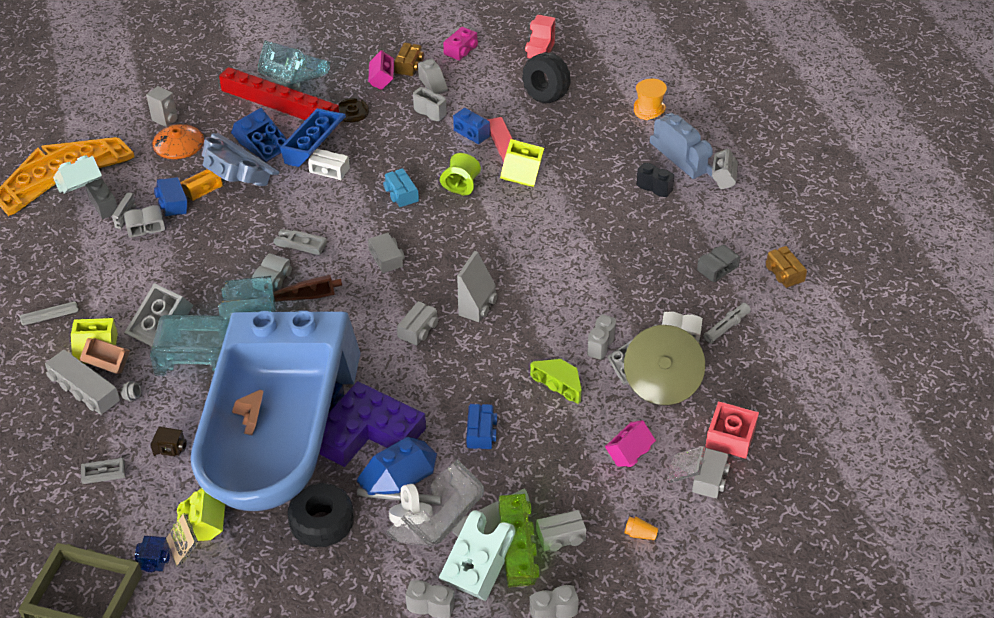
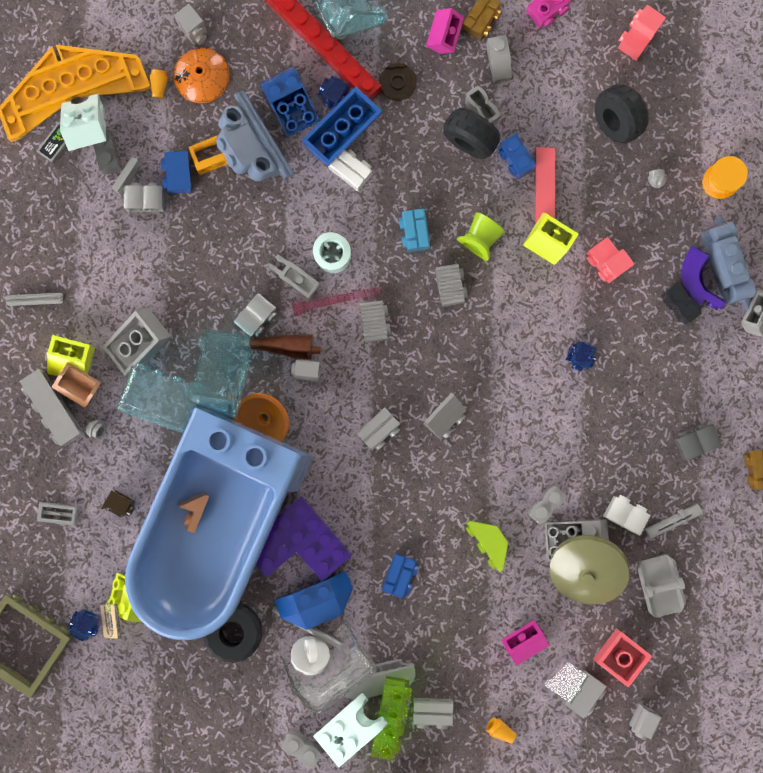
camera: 20 degrees right, 40 degrees up
(51, 207) = (52, 145): none -> tile
(140, 150) = (158, 82): none -> light orange cone
(295, 120) = (332, 91): none -> clear blue brick
(311, 260) = (300, 307): none -> clear pink piece
(330, 213) = (332, 252): none -> light aqua hat
(334, 292) = (306, 370): none -> light grey brick
(416, 112) = (471, 133): none -> black tyre
(446, 214) = (450, 285): none -> light grey brick
(581, 166) = (609, 260): none -> coral brick
(584, 231) = (581, 356): none -> clear blue brick
(595, 115) = (657, 178): none -> light grey plate
(653, 153) = (693, 279): none -> dark purple arch
(743, 371) = (661, 585): none -> light grey shield
(781, 471) = (644, 722): none -> light grey brick

